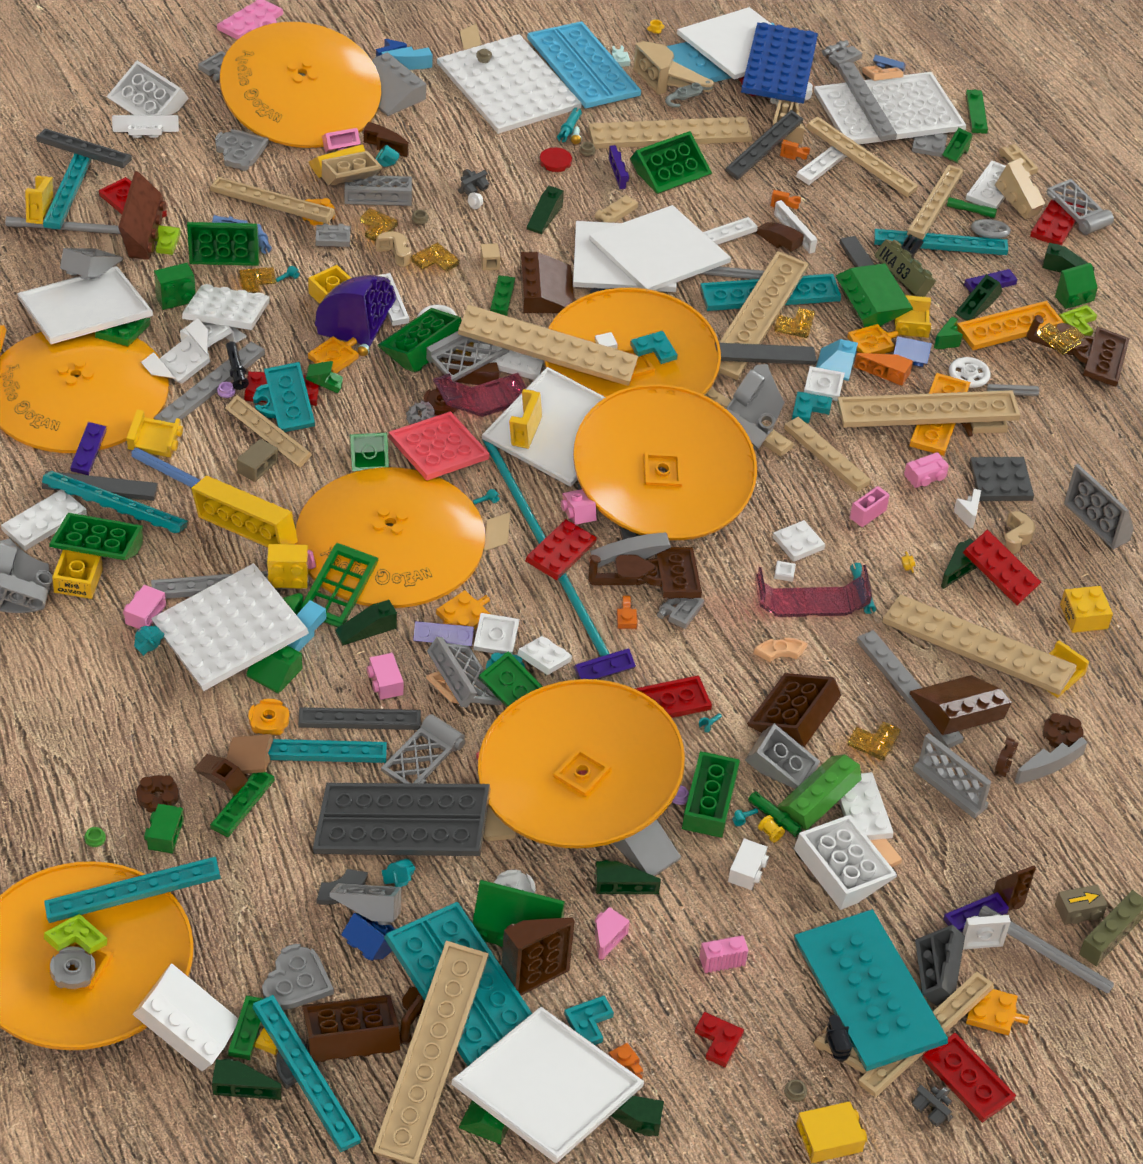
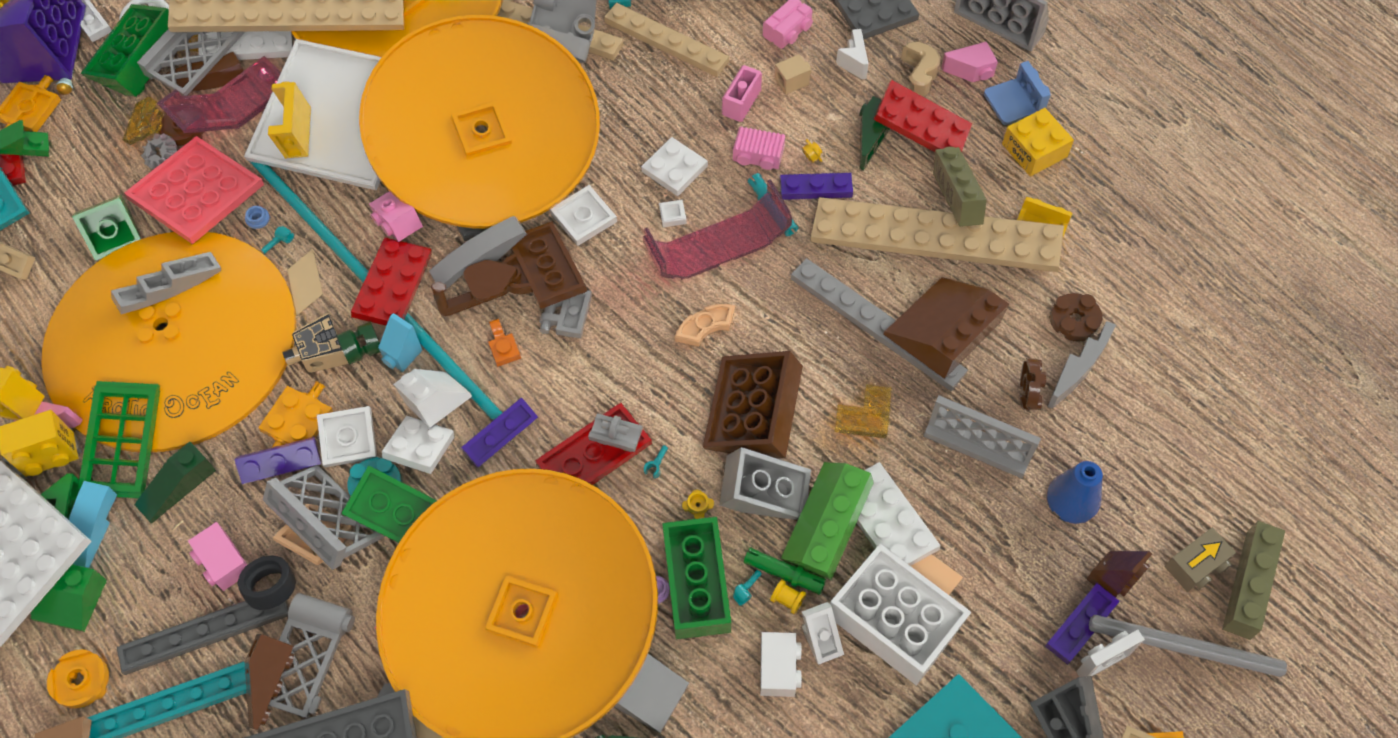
camera: 15 degrees left, 15 degrees up
(395, 748) = (262, 673): none -> reddish brown slope
(409, 496) = (172, 280): none -> light grey slope
(413, 701) = (276, 594): none -> black tyre
(415, 390) = (143, 121): none -> clear yellow plate
(477, 478) = (257, 212): none -> medium blue plate
(494, 573) = (316, 346): none -> torso
(518, 579) = (351, 346): none -> dark green wheel
(553, 588) = (399, 344): none -> medium azure slope
(563, 626) = (431, 394): none -> white slope
(688, 688) = (615, 432): none -> light grey hips
(717, 550) = (583, 215): none -> white plate
(730, 751) = (698, 496): none -> yellow plate
(786, 855) = (822, 633): none -> white slope
(867, 547) = (758, 148): none -> bright pink brick
(898, 585) = (816, 185): none -> dark purple plate
(915, 506) = (792, 74): none -> tan brick
(1008, 615) = (959, 187): none -> olive brick
(1009, 834) = (1077, 493): none -> blue cone
(1058, 540) = (971, 62): none -> bright pink slope
(1086, 574) = (1019, 96): none -> medium blue bracket

